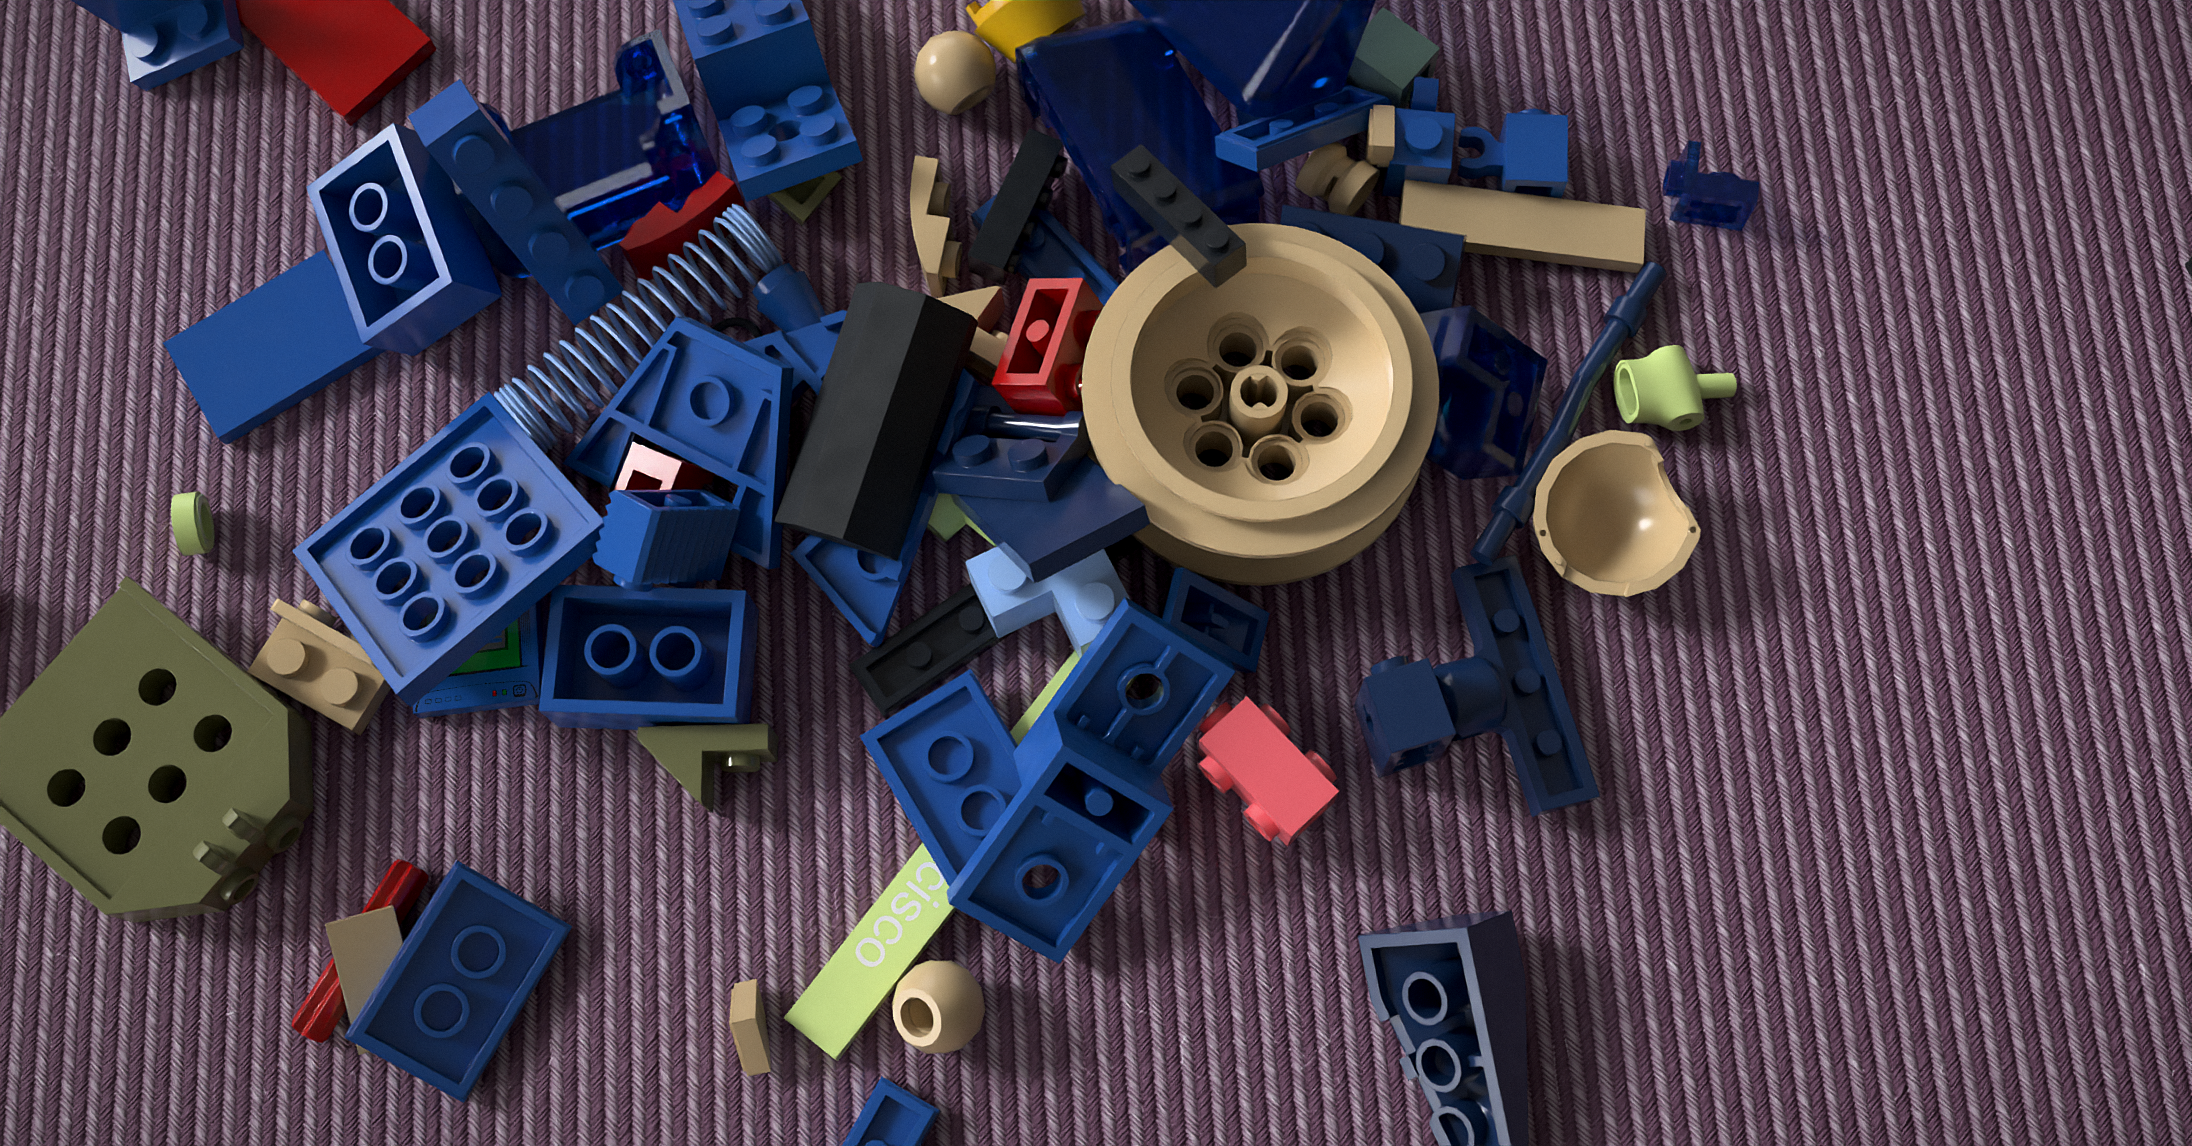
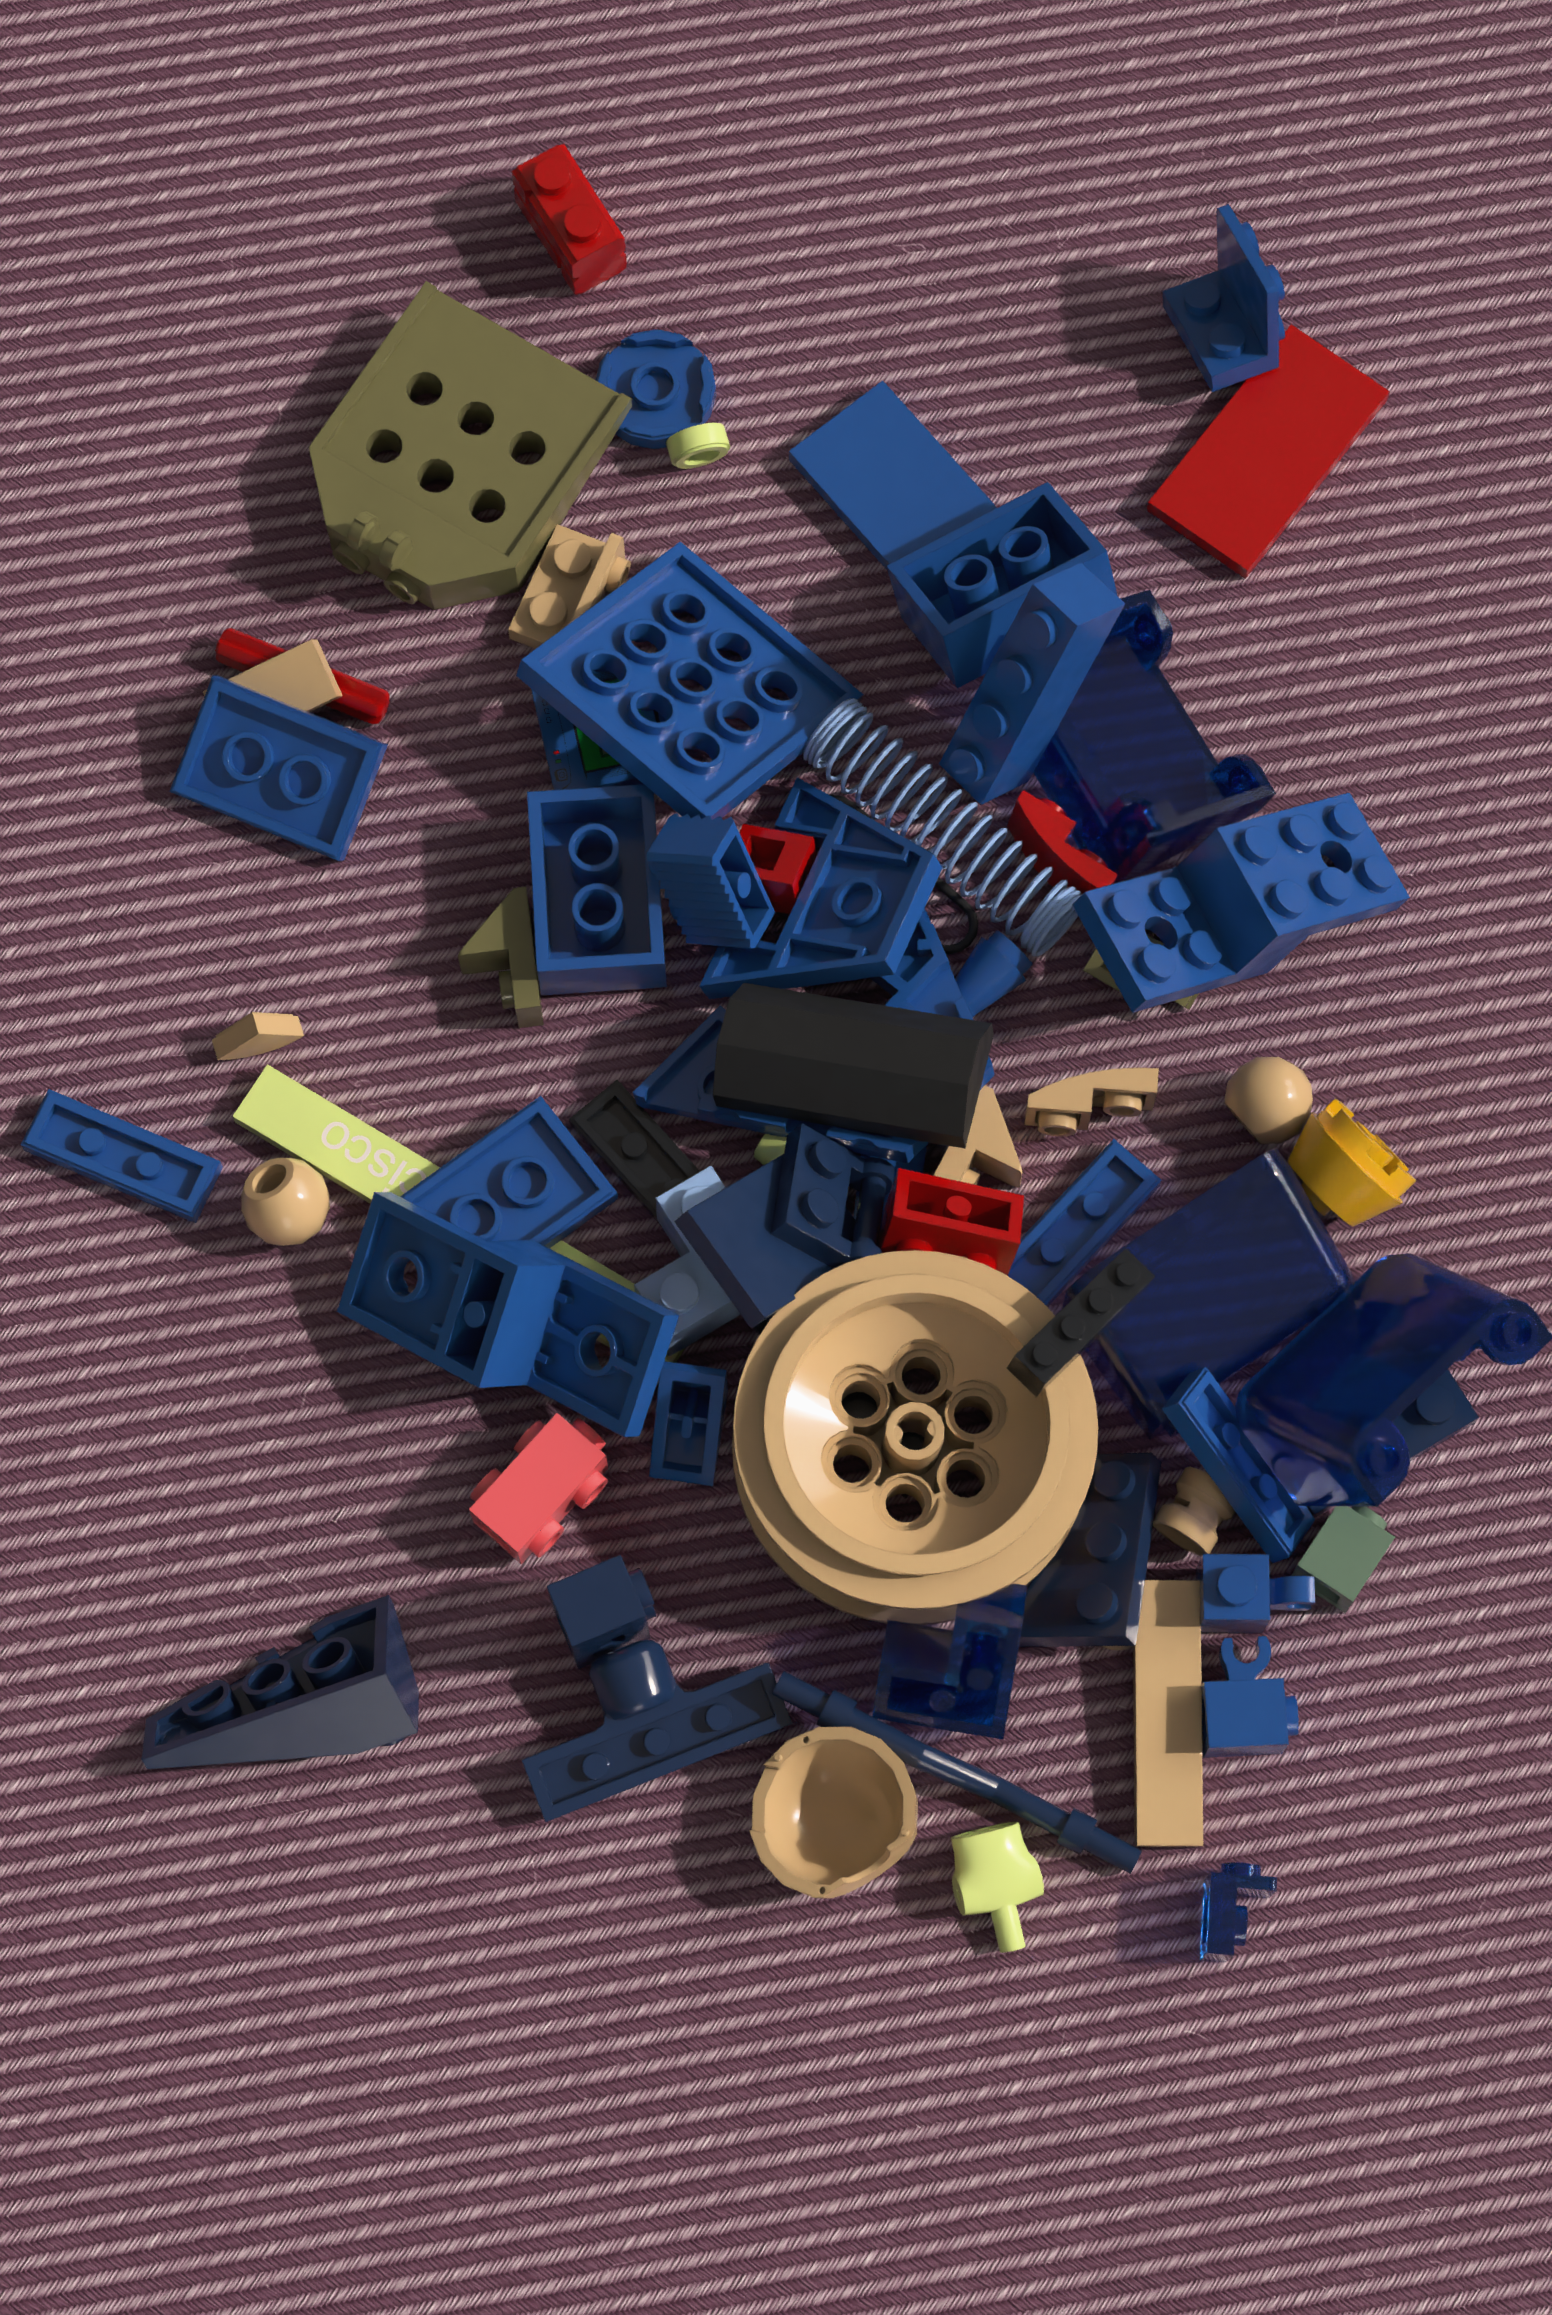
camera: 80 degrees right, 0 degrees up
(114, 545) = (667, 382): none -> blue tile
(1017, 206) = (1114, 1179): black piece -> none
(1380, 135) = (1237, 1542): tan tile -> none

